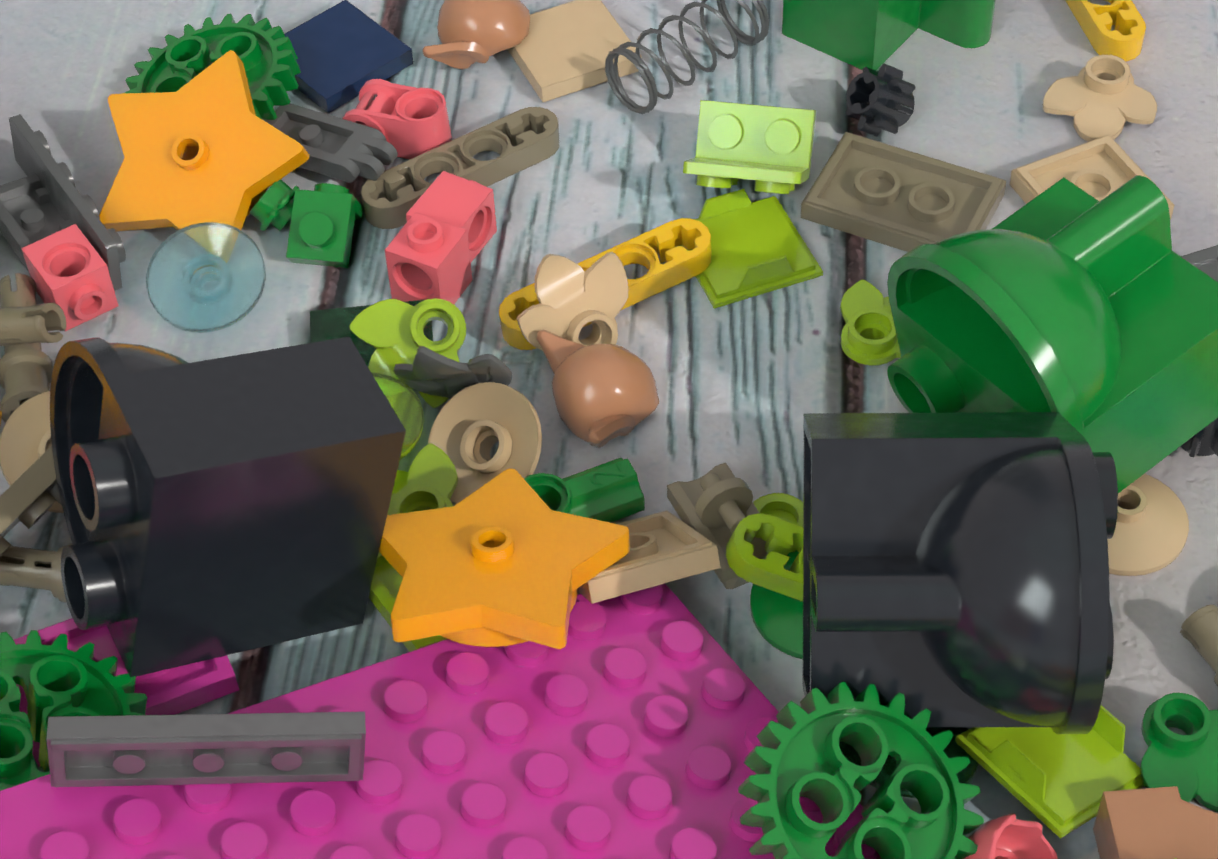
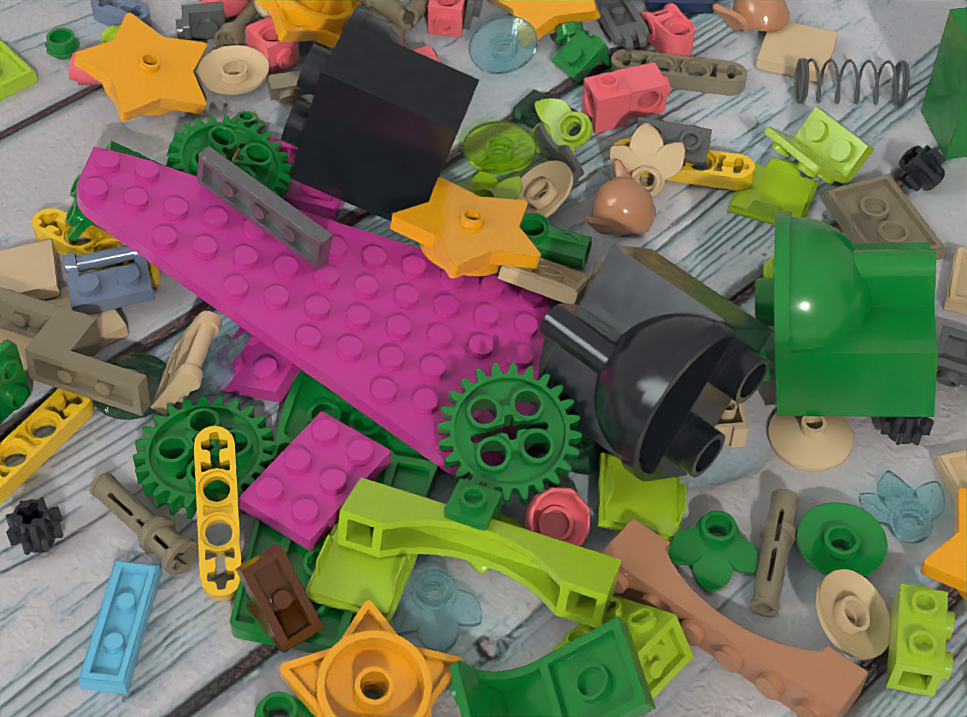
camera: 40 degrees right, 0 degrees up
(580, 244) = (695, 138): none -> dark grey bracket

